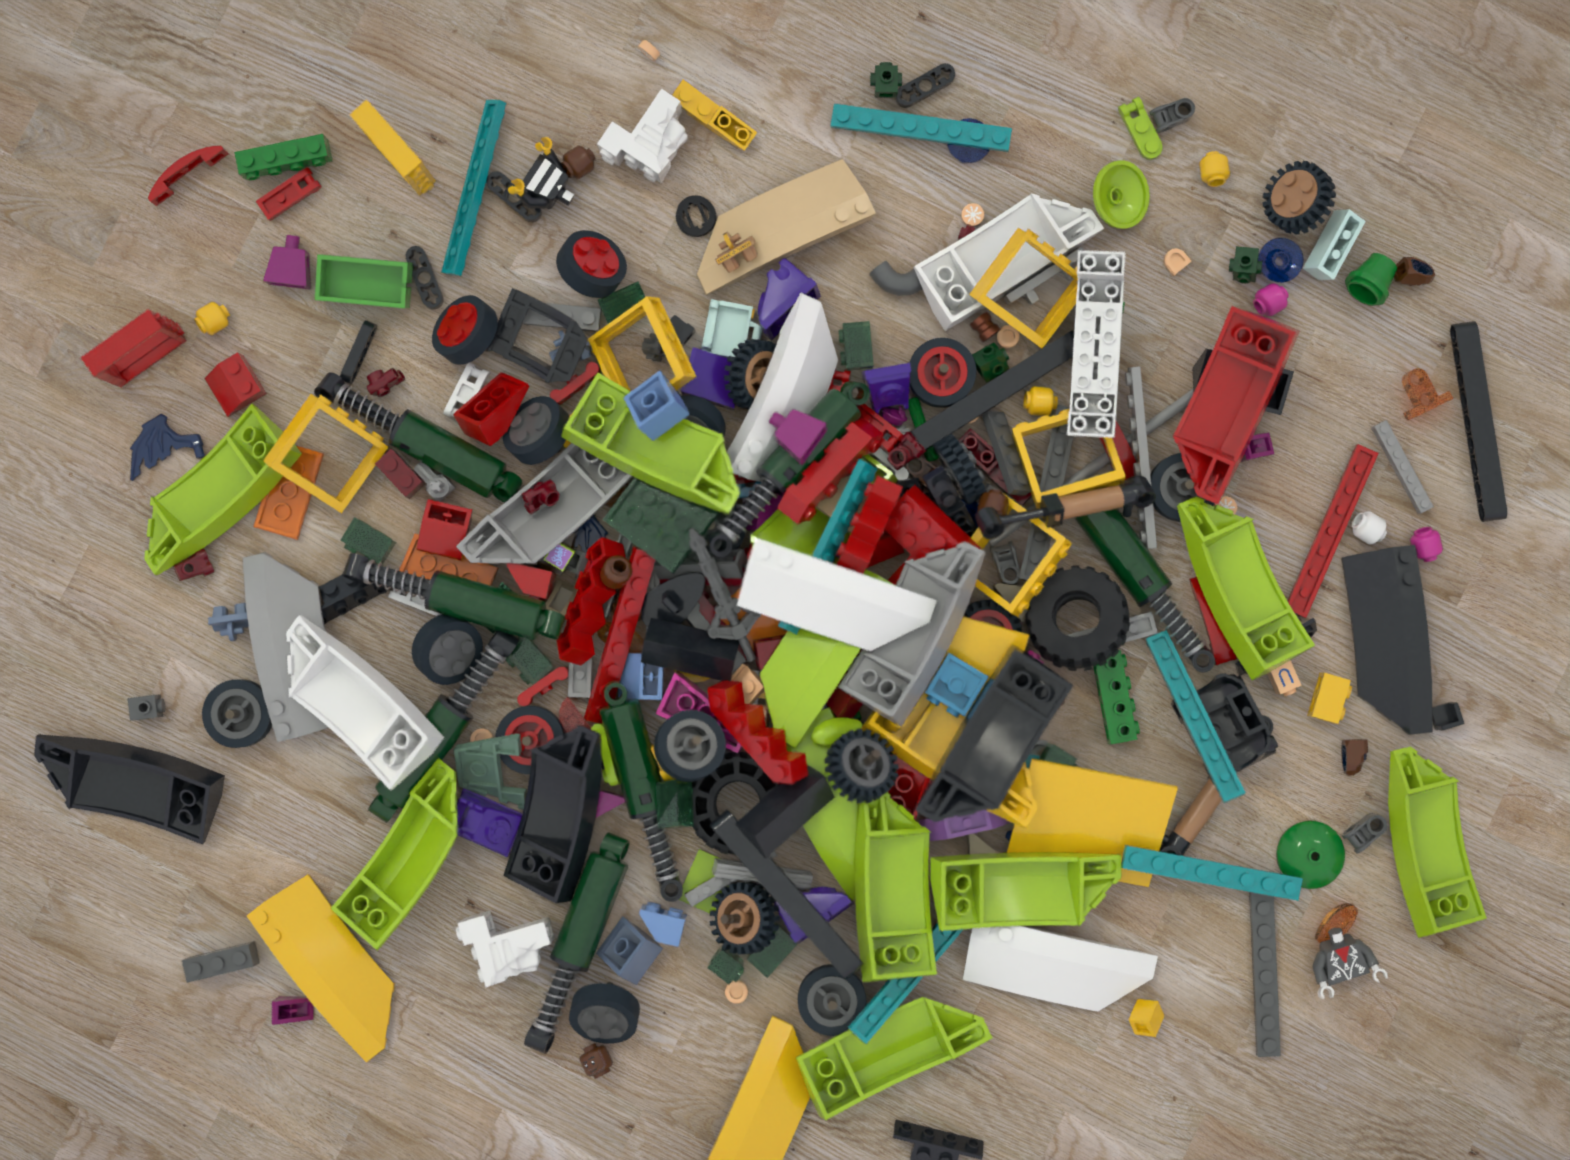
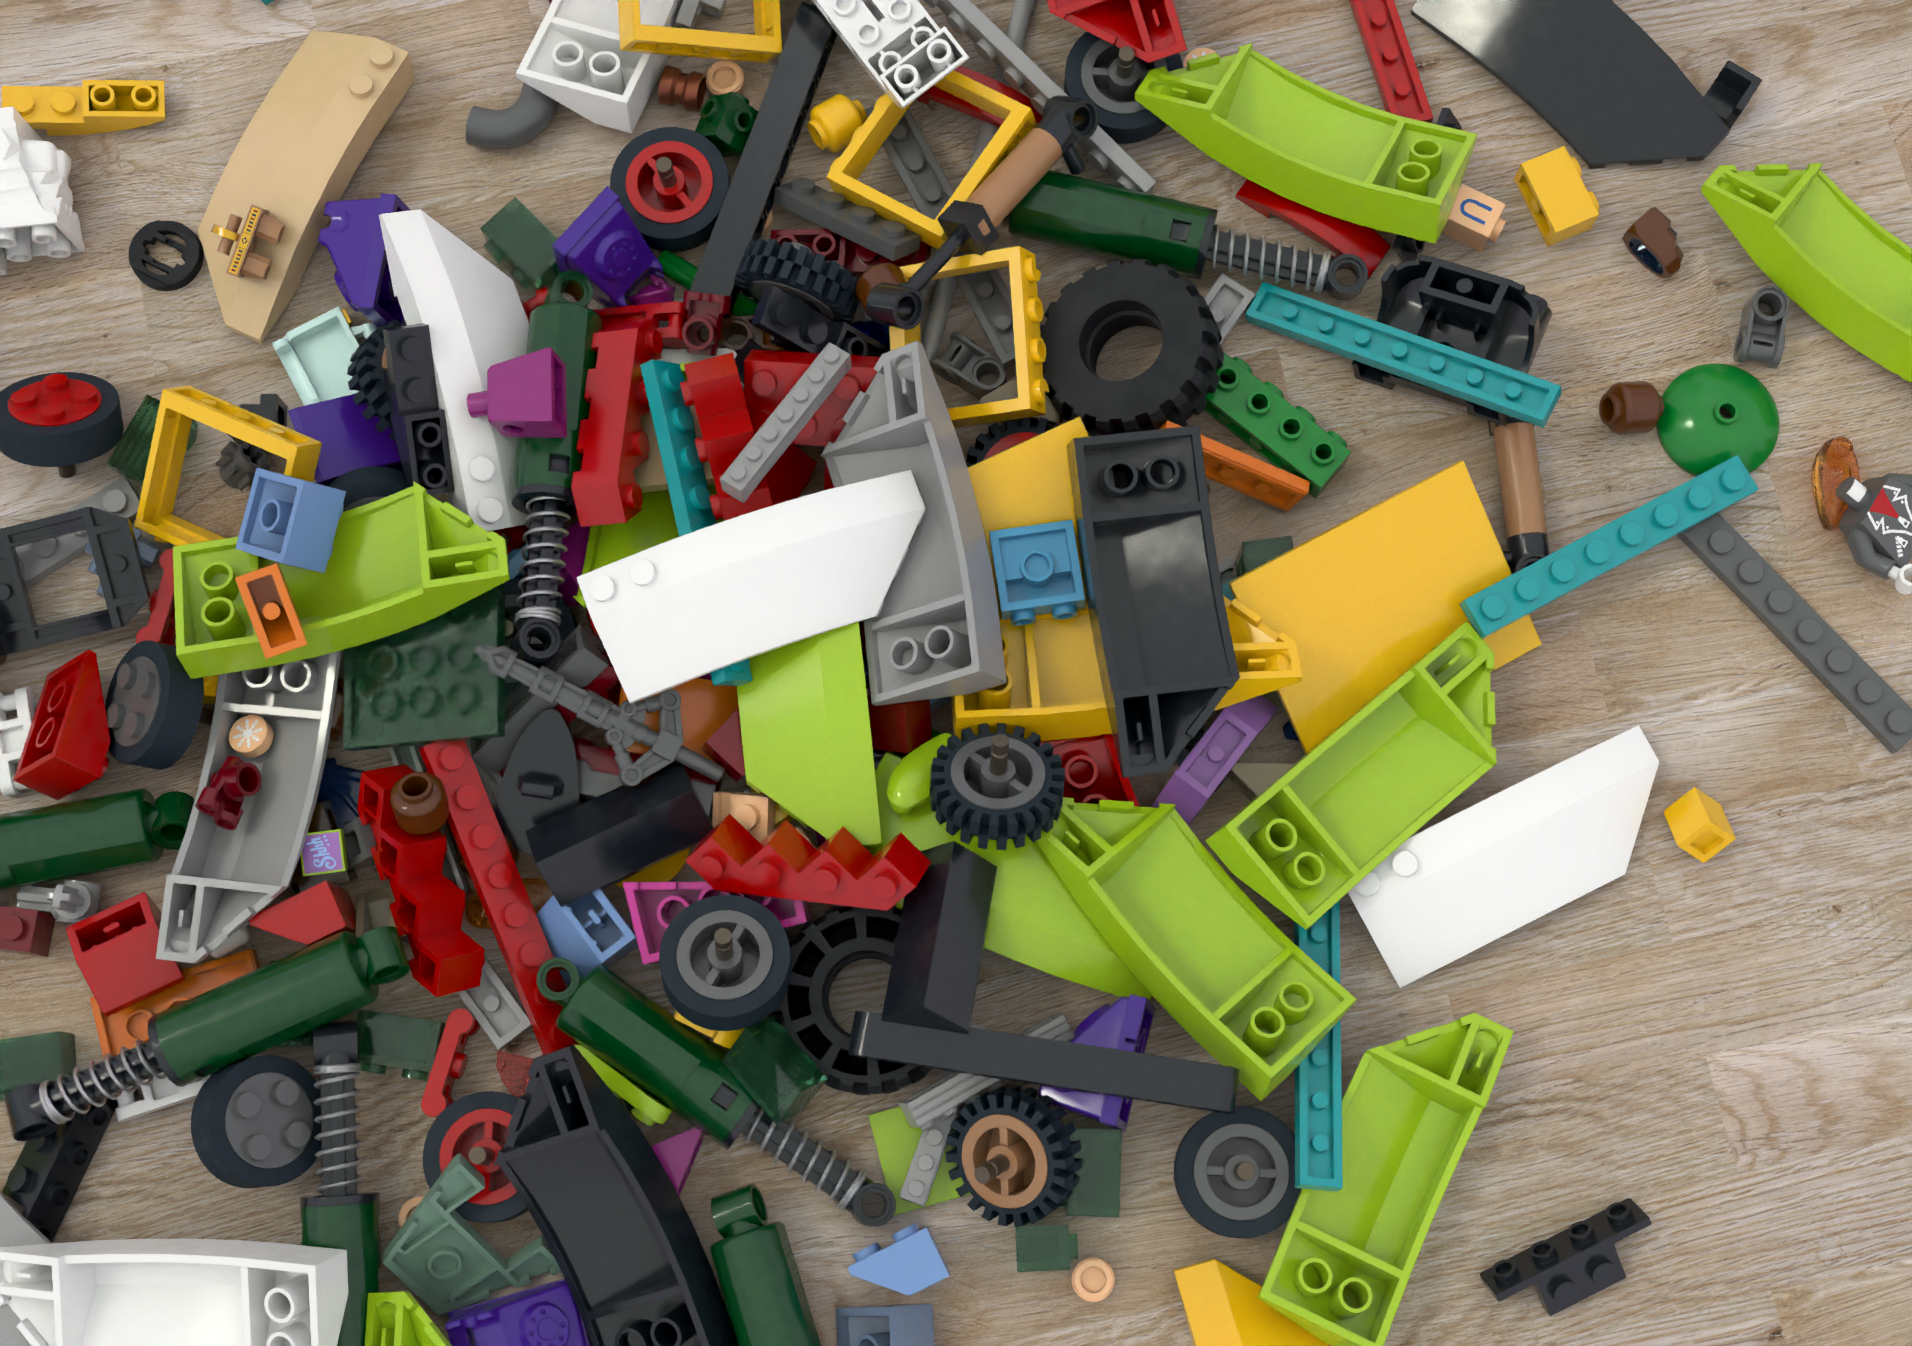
camera: 35 degrees left, 10 degrees down
(567, 476) = (251, 736): none -> light nougat tile
(618, 443) = (271, 610): none -> orange slope
(746, 398) = (414, 408): none -> black slope
(899, 539) = (785, 422): none -> light grey piece
(1081, 707) = (1250, 474): none -> orange tile
(1277, 819) = (1631, 407): none -> reddish brown head

